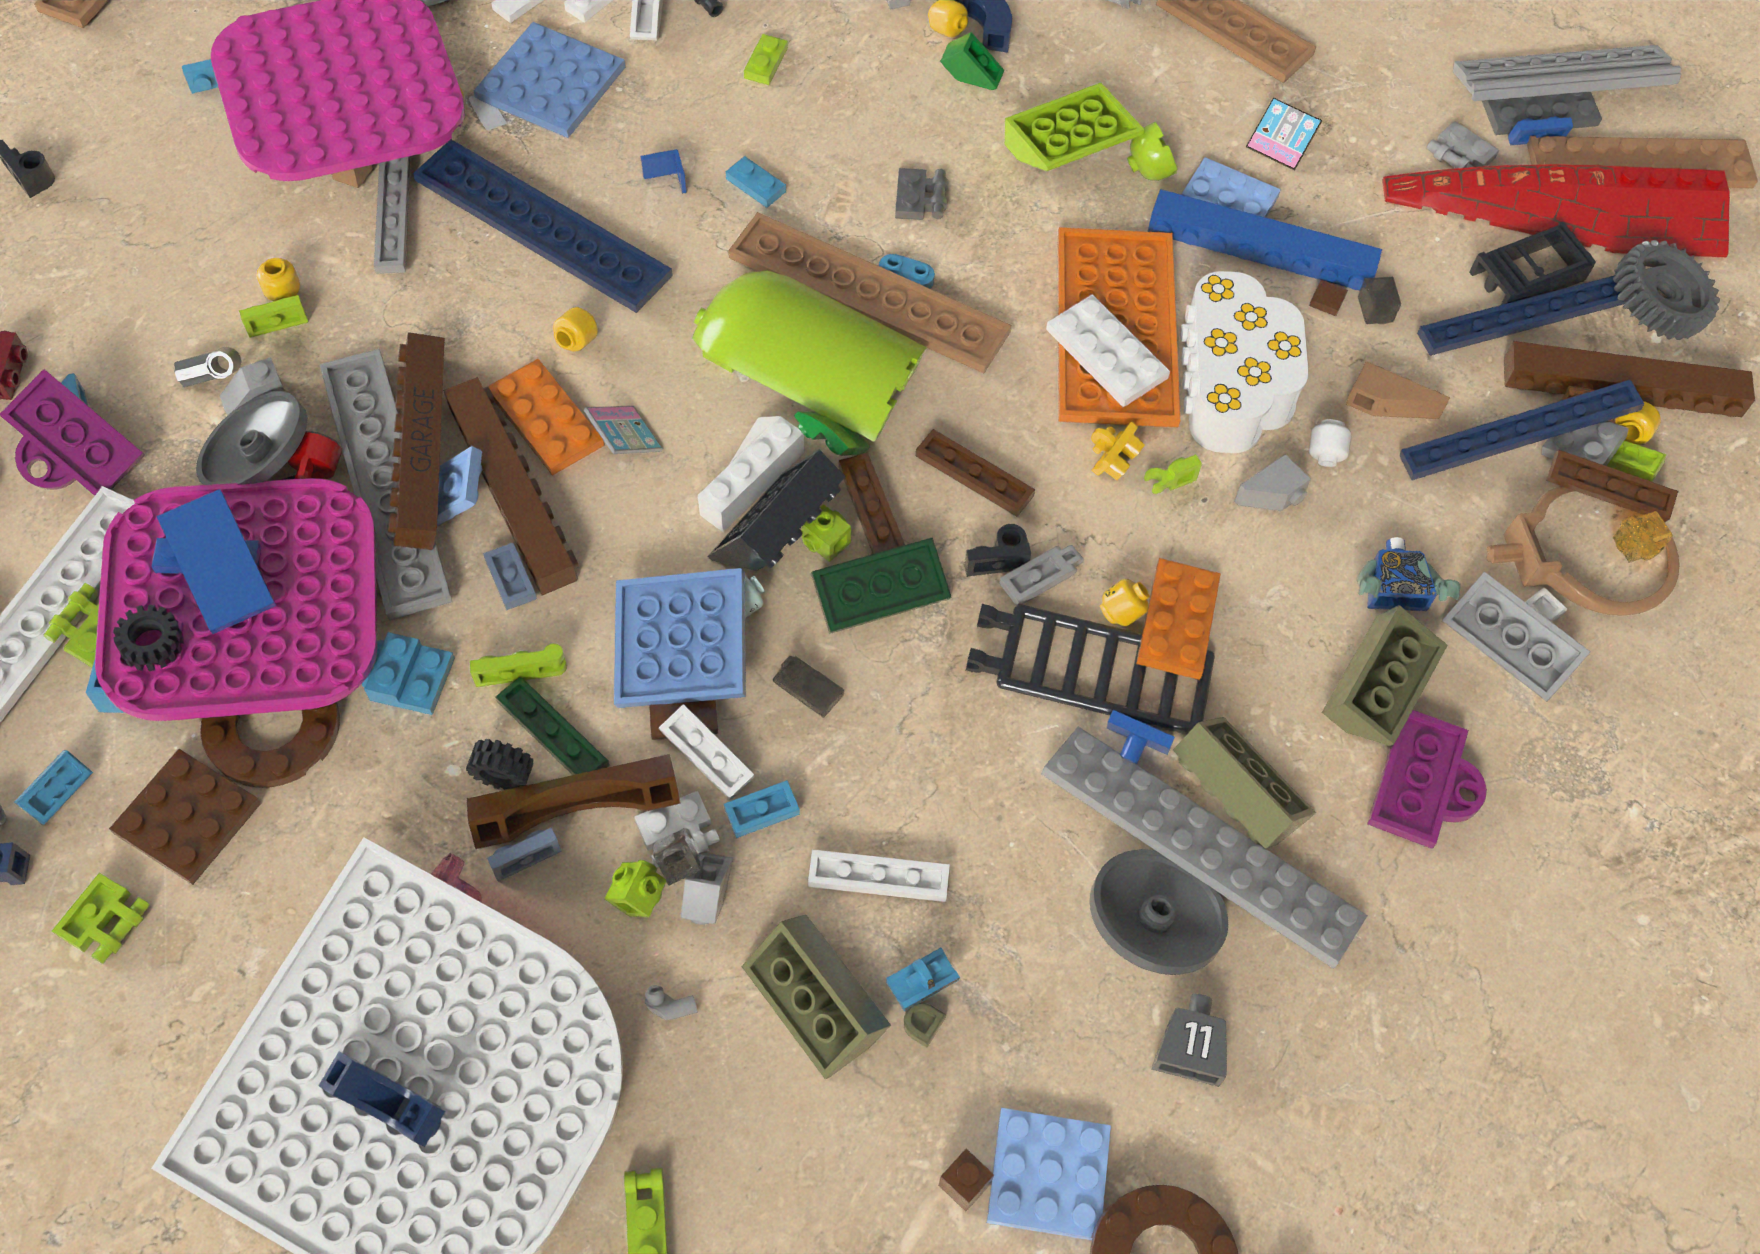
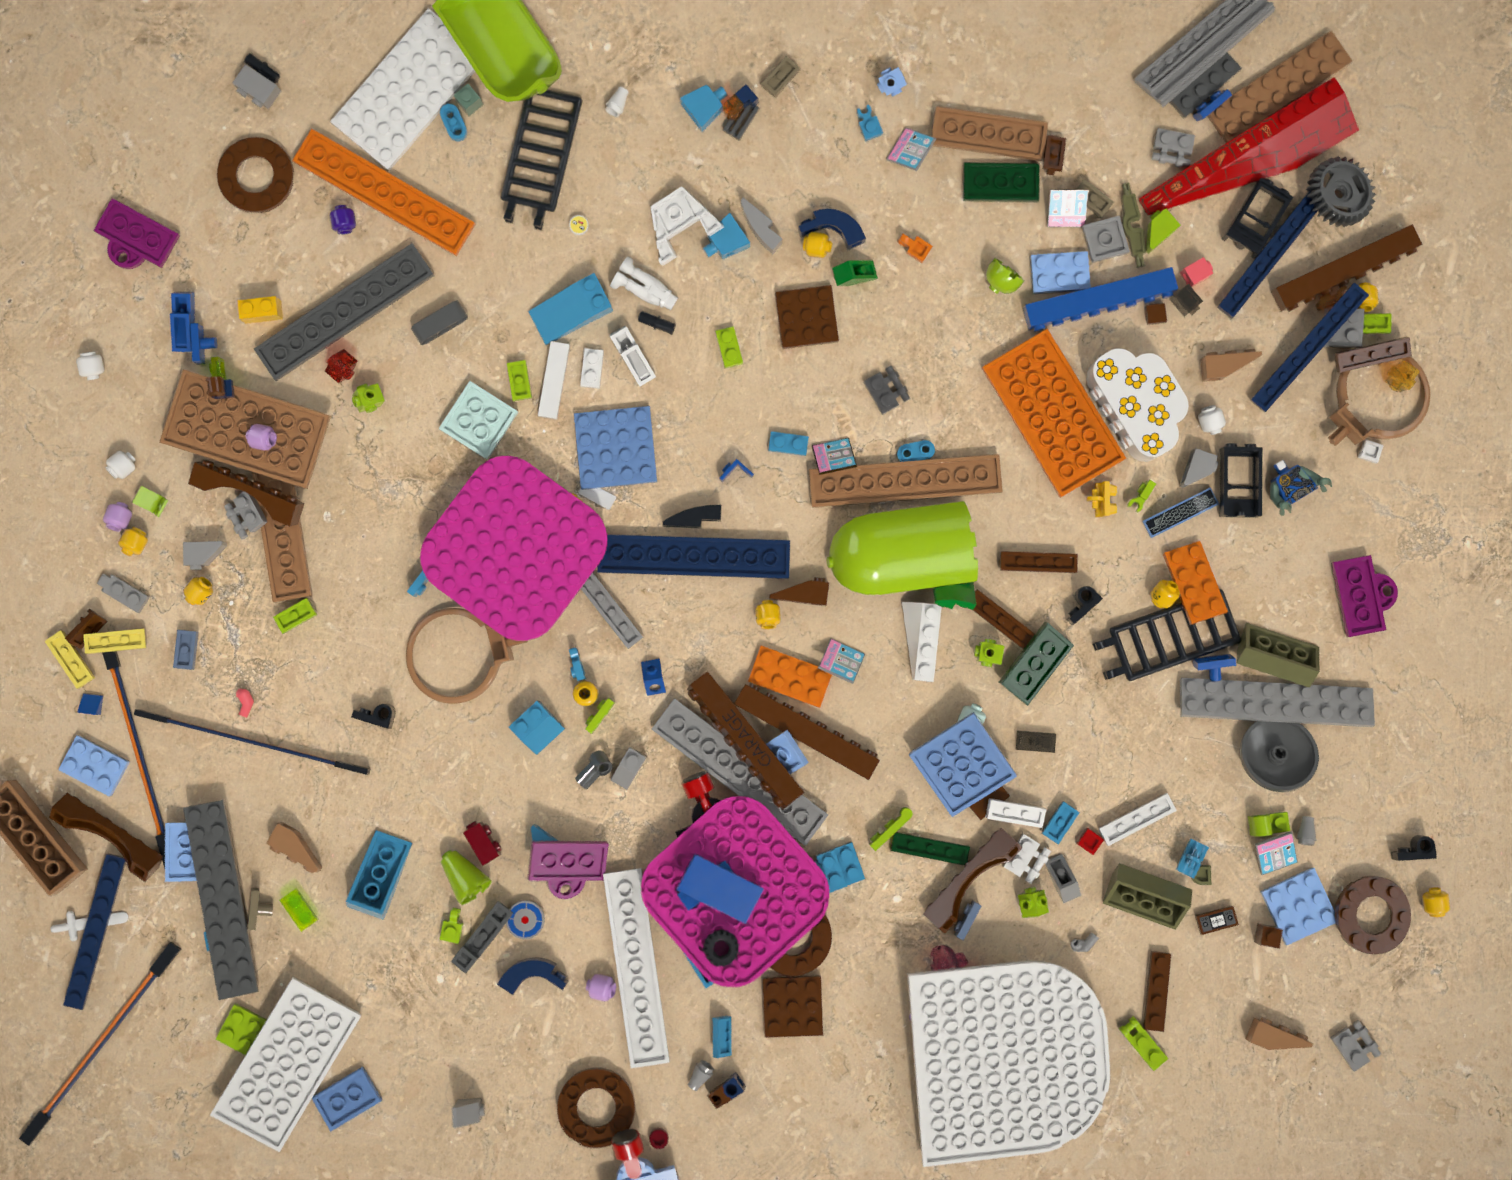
camera: 35 degrees left, 25 degrees up
(44, 31) = (295, 615): none -> lime plate
(82, 640) = (671, 954): lime plate -> none
(93, 911) = (792, 1078): lime plate -> none
(188, 282) = (536, 727): none -> dark azure slope
(223, 192) = (499, 645): none -> medium nougat brick
(253, 440) = (662, 802): dark grey dish -> none
(298, 248) = (577, 669): none -> dark azure plate
(376, 310) = (653, 675): none -> blue bracket
(383, 1098) = (1008, 1076): dark blue arch -> none
(499, 764) = (926, 887): black tyre -> none
(509, 576) = (847, 782): sand blue plate -> none
(577, 185) = (693, 517): none -> black slope
(640, 332) = (809, 592): none -> reddish brown slope
(676, 856) = (1045, 879): clear smoke brick -> none
(728, 1156) = (1157, 991): none -> reddish brown plate
(780, 514) = (962, 664): black slope -> none
(787, 865) = (1090, 841): none -> red tile
(799, 216) = (834, 456): none -> piece
(881, 79) = (807, 317): none -> reddish brown plate
(900, 1106) = (1216, 920): none -> tile
(1041, 574) = (1111, 601): light grey hinge -> none
(1062, 1058) = (1276, 853): none -> piece
(1063, 79) = (917, 248): none -> orange plate
(1069, 128) = (952, 295): lime slope -> none
(1077, 1012) = (1268, 824): none -> lime plate
(1107, 350) = (1062, 438): white plate -> none
(1131, 1063) = (1307, 832): none -> light grey cone
(1194, 1044) = (1329, 806): dark grey torso -> none
(1216, 523) = (1180, 512): none -> black slope
(1218, 78) = (1001, 182): none -> dark green tile
(1298, 1211) = (1415, 851): none -> black plate
(1301, 79) = (1054, 154): none -> reddish brown plate
(1303, 570) = (1241, 507): none -> black door
(1312, 189) = (1105, 239): none -> light grey plate
(1327, 148) = (1097, 201): none -> dark tan plate
(1363, 187) = (1134, 235): none -> olive piece
(1385, 677) = (1316, 552): olive slope -> none
(1393, 214) = (1160, 228): none -> lime slope
(1414, 279) = (1197, 272): none -> coral brick
(1516, 636) = (1366, 481): light grey slope -> none

